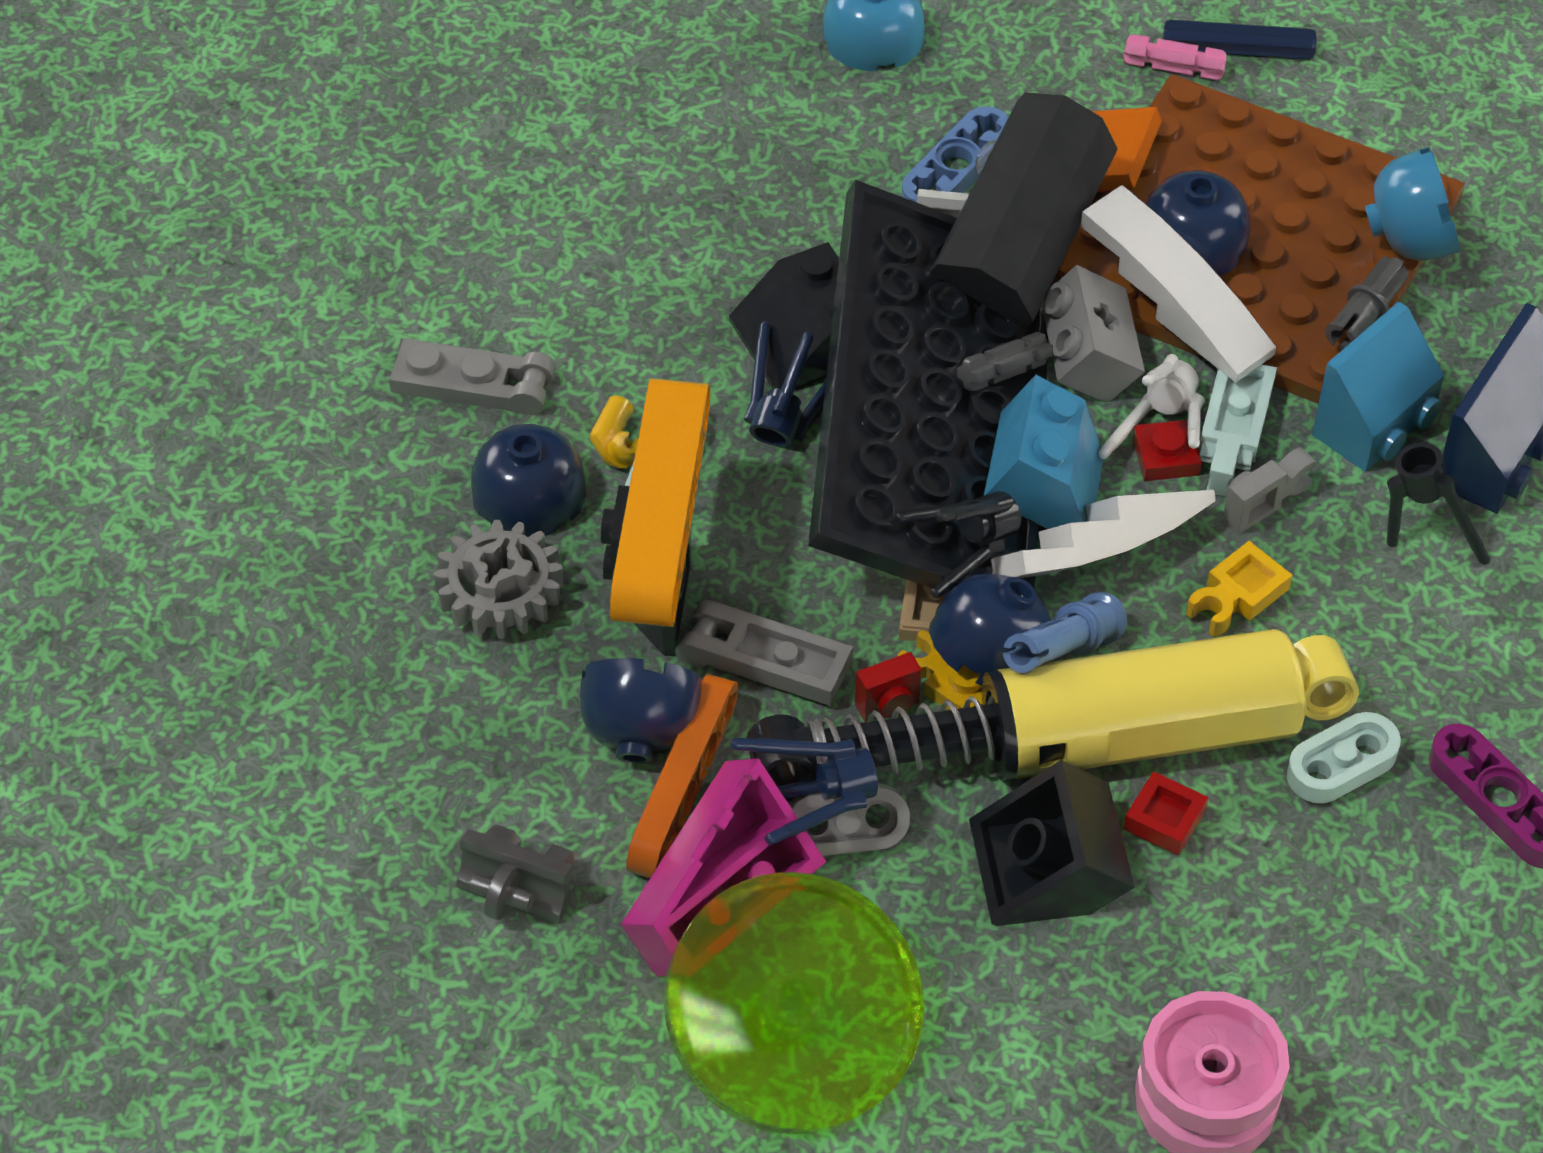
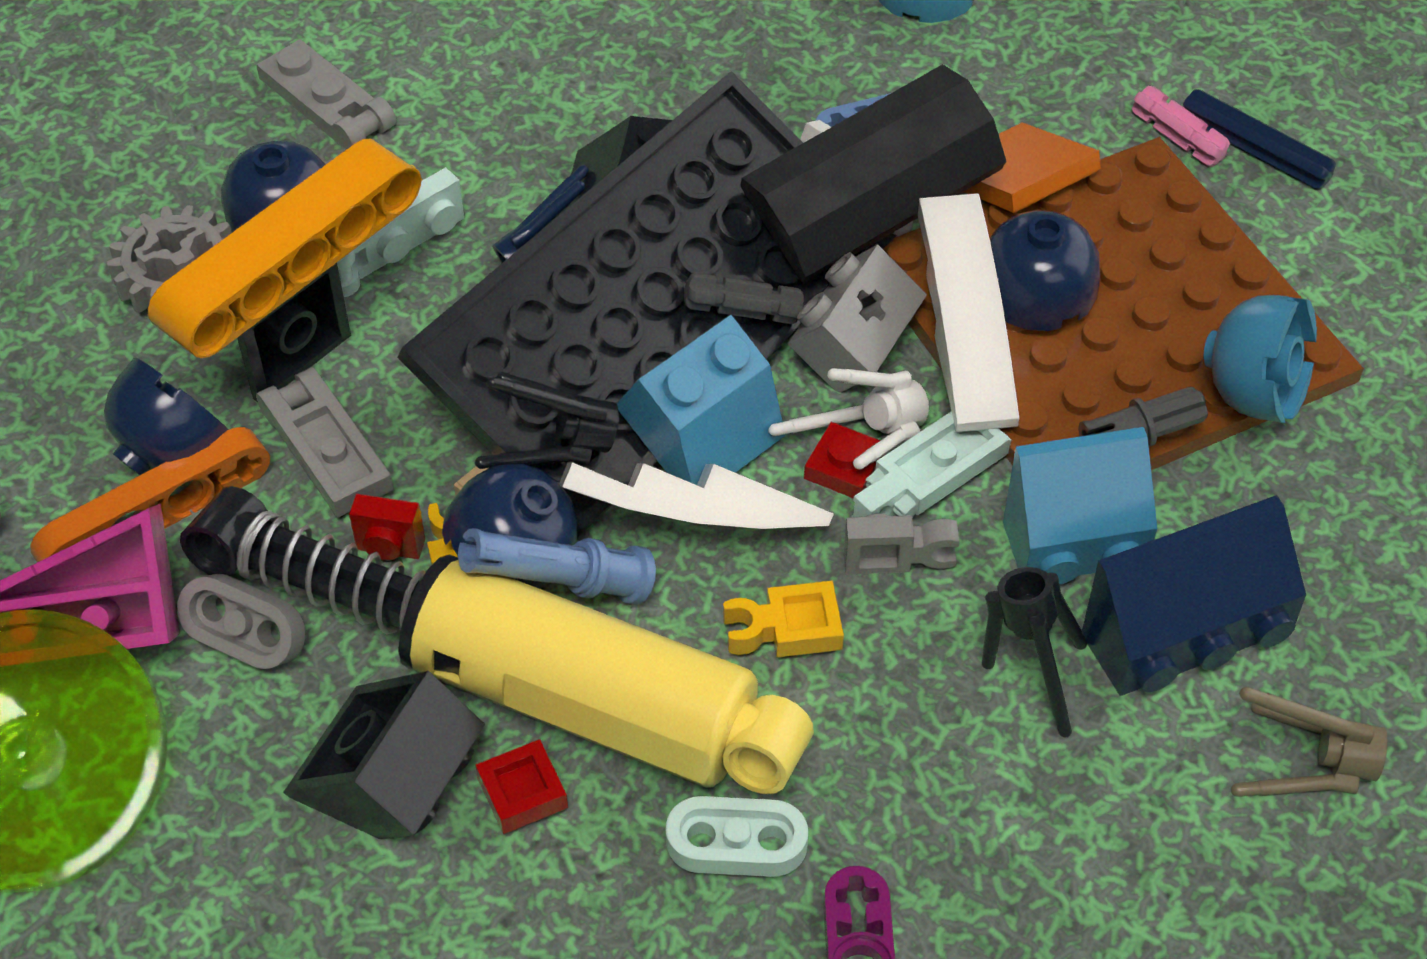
camera: 35 degrees right, 0 degrees up
(846, 777) = (233, 574): dark blue plant -> none

